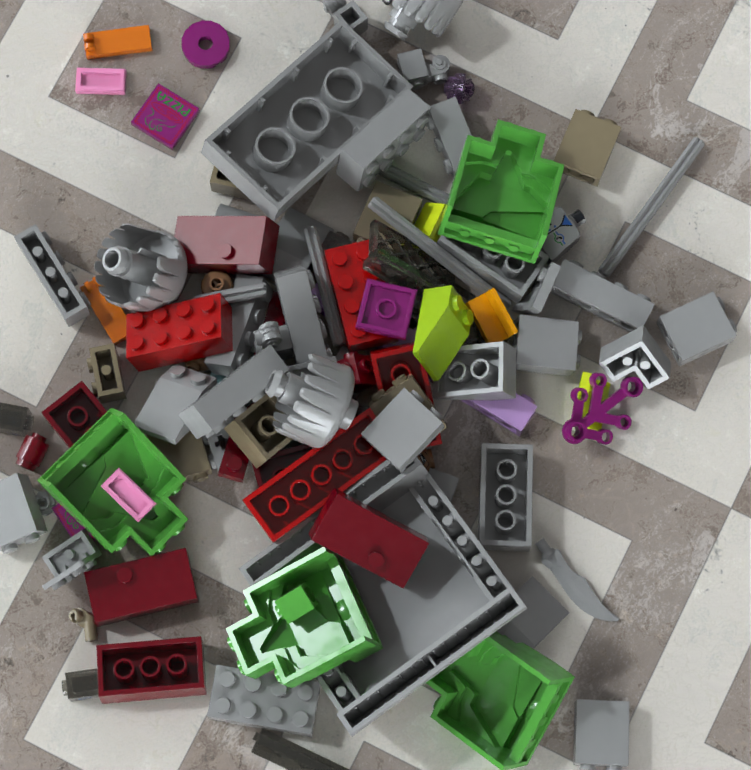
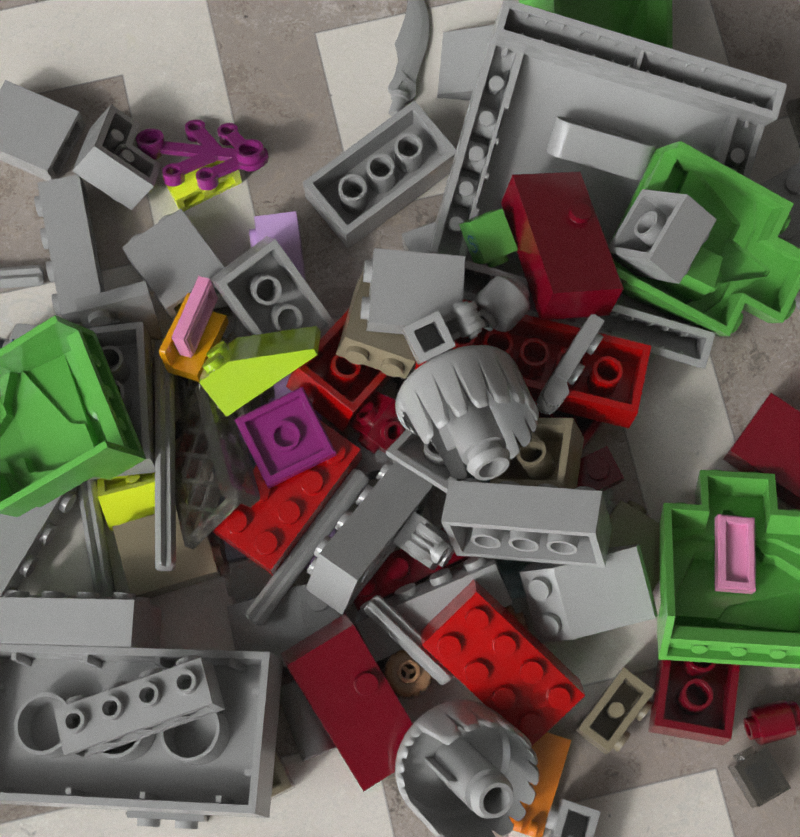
camera: 125 degrees left, 0 degrees up
(295, 480) = (569, 367): none -> light grey hinge
(302, 131) = (138, 708): none -> light grey brick
(324, 589) = (661, 235): none -> light grey brick
(359, 473) = (503, 303): none -> light grey head
(366, 410) = (437, 333): none -> light grey brick
(408, 507) = (489, 238): none -> bright green brick
(411, 619) = (600, 148): none -> light grey beam
(500, 323) = (195, 317): none -> bright pink tile

